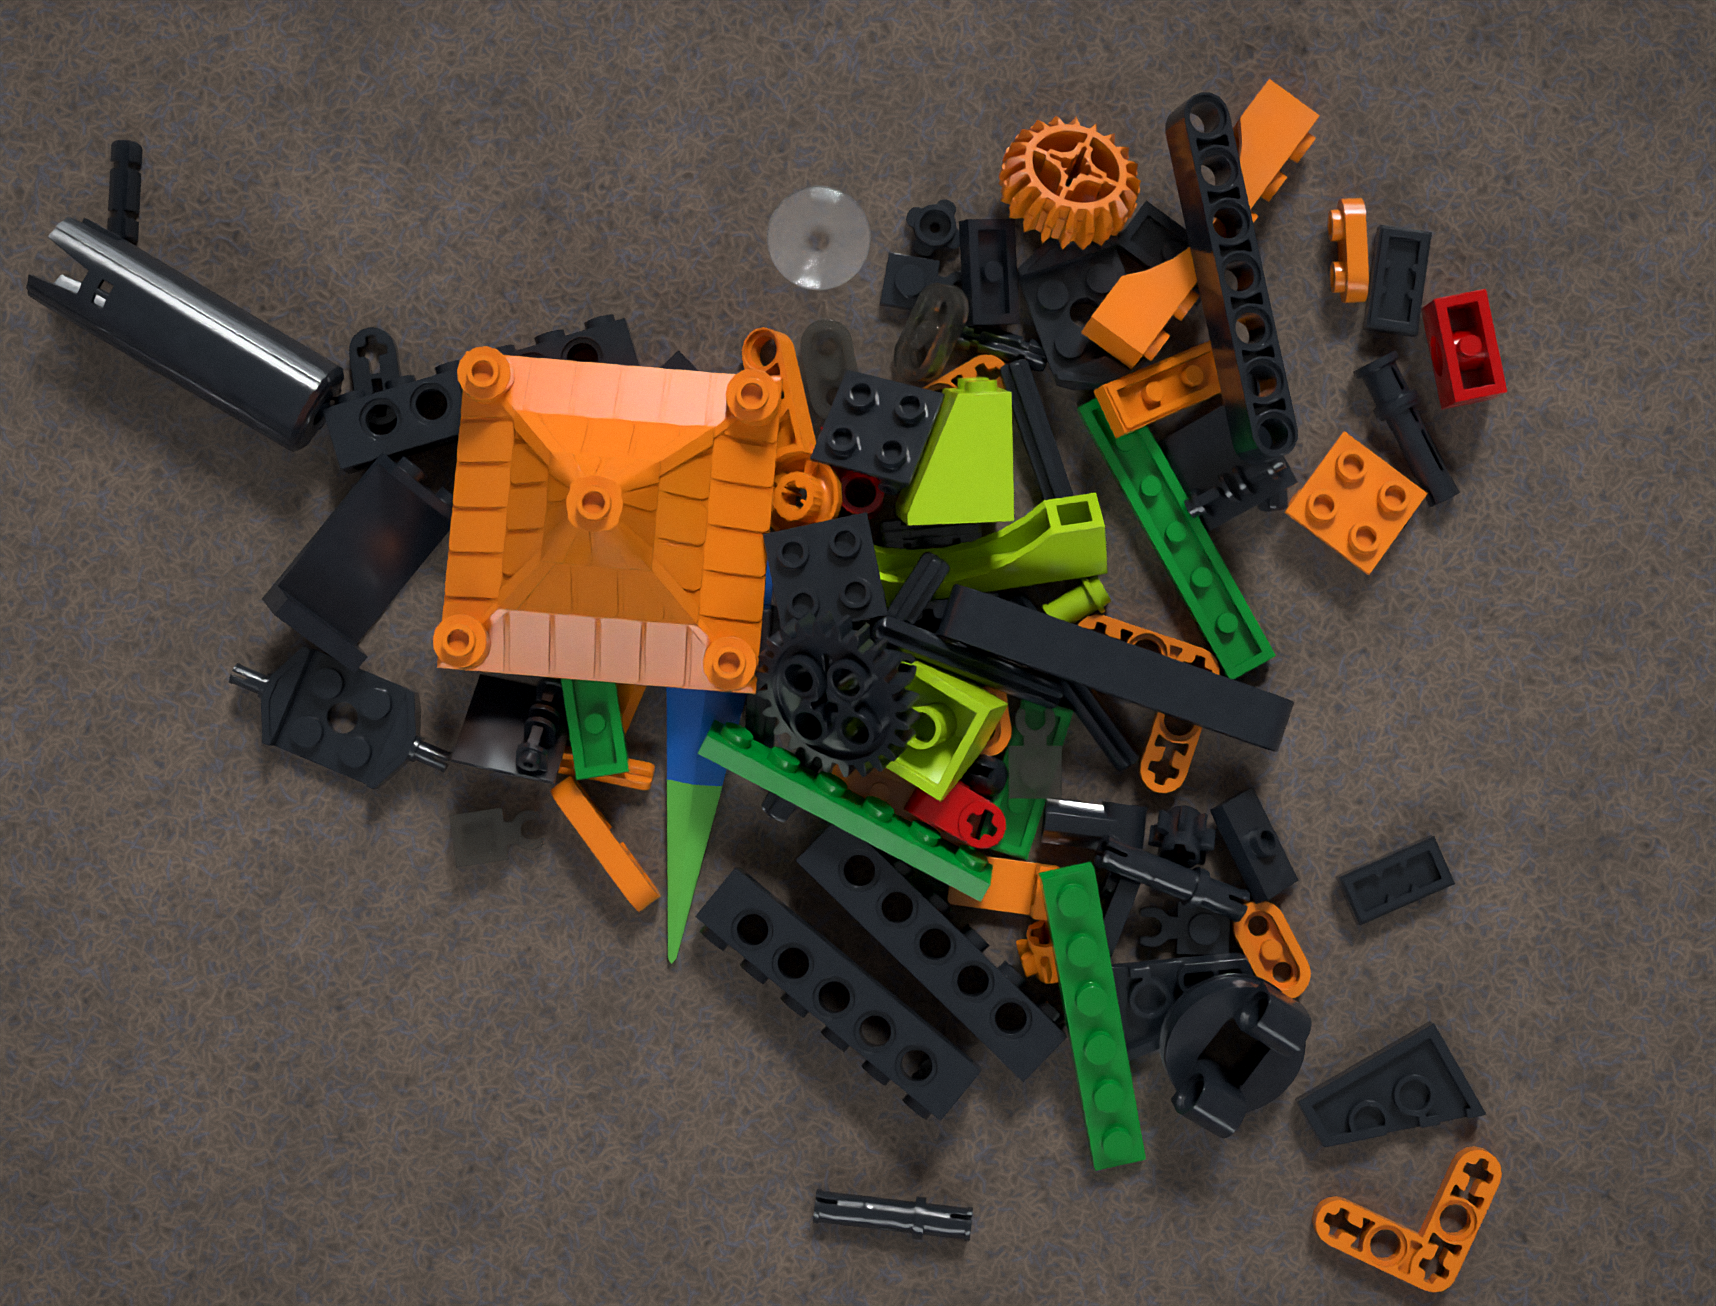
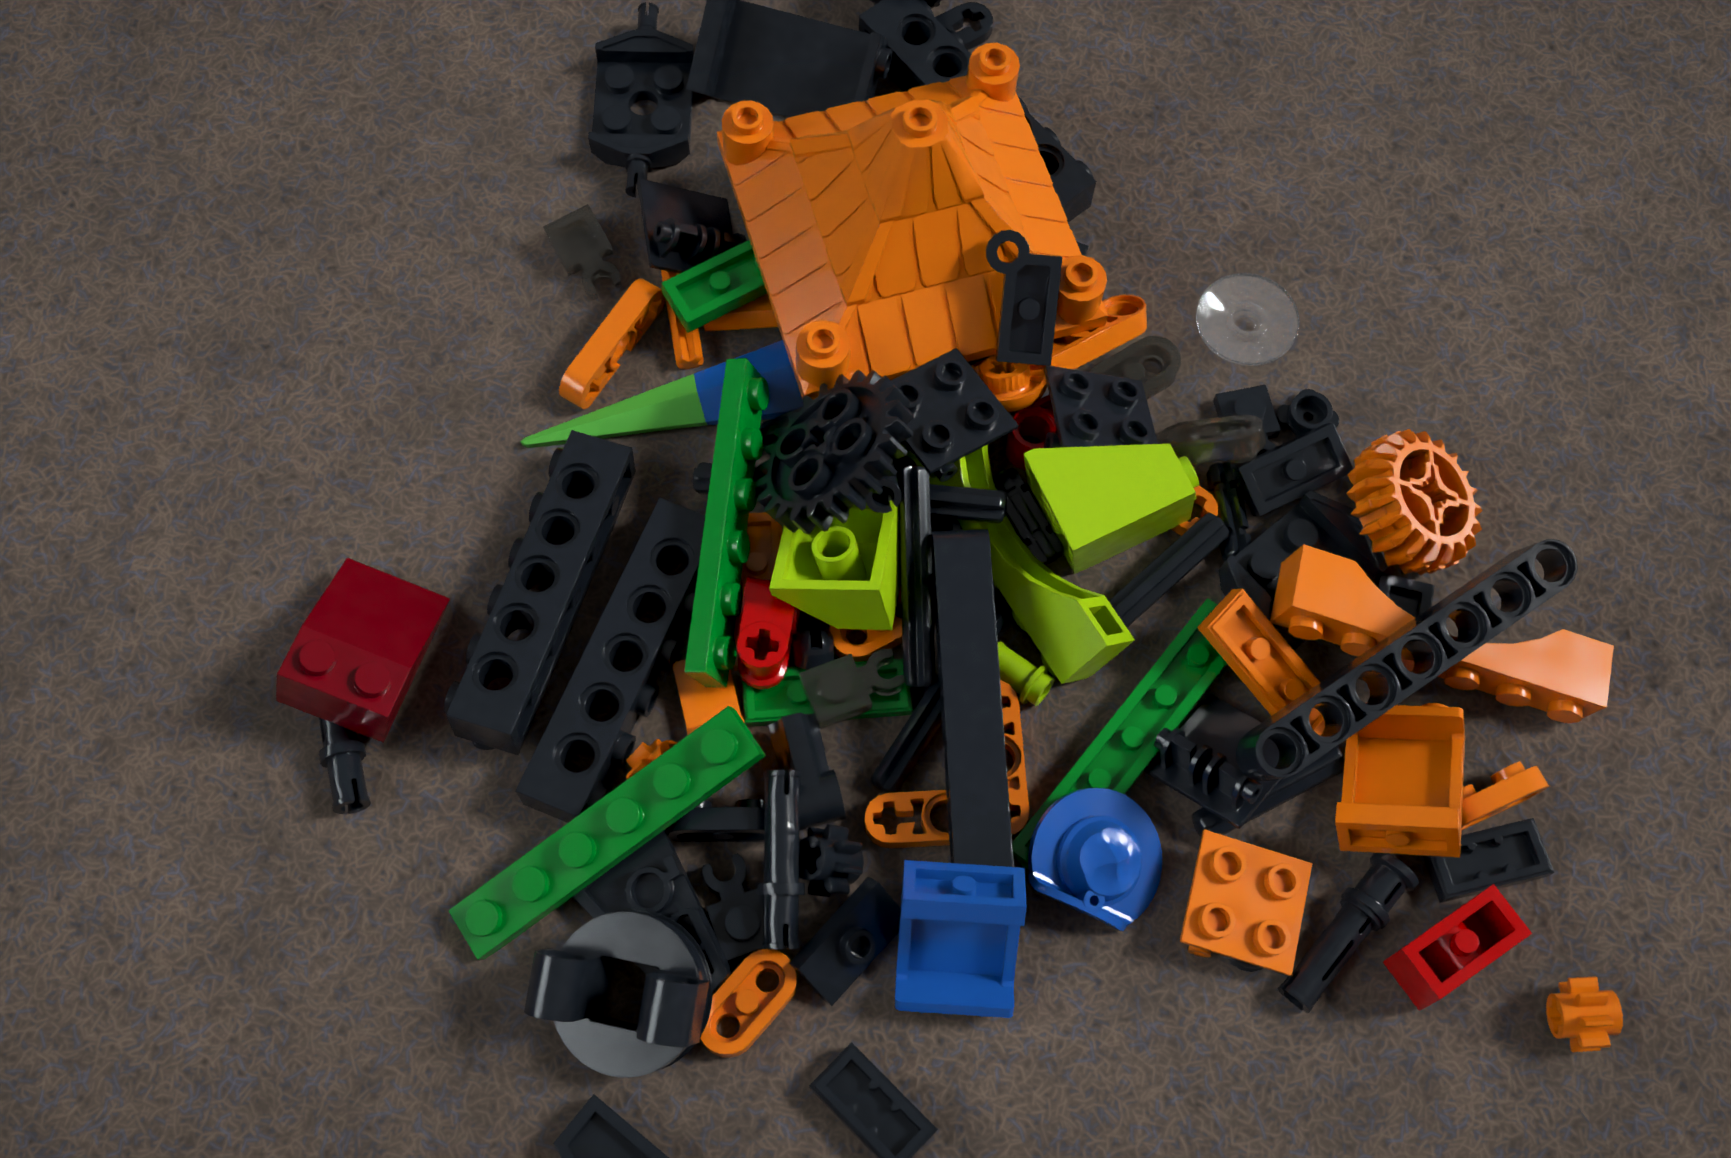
camera: 65 degrees right, 20 degrees down
(758, 456) = (1027, 301): none -> black hinge
(832, 1168) = (360, 649): none -> dark red slope
(1268, 610) = (1097, 855): none -> blue hat
(1301, 759) = (959, 938): none -> blue panel
(1321, 322) = (1404, 783): none -> orange panel
(1553, 270) = (1584, 1014): none -> orange gear

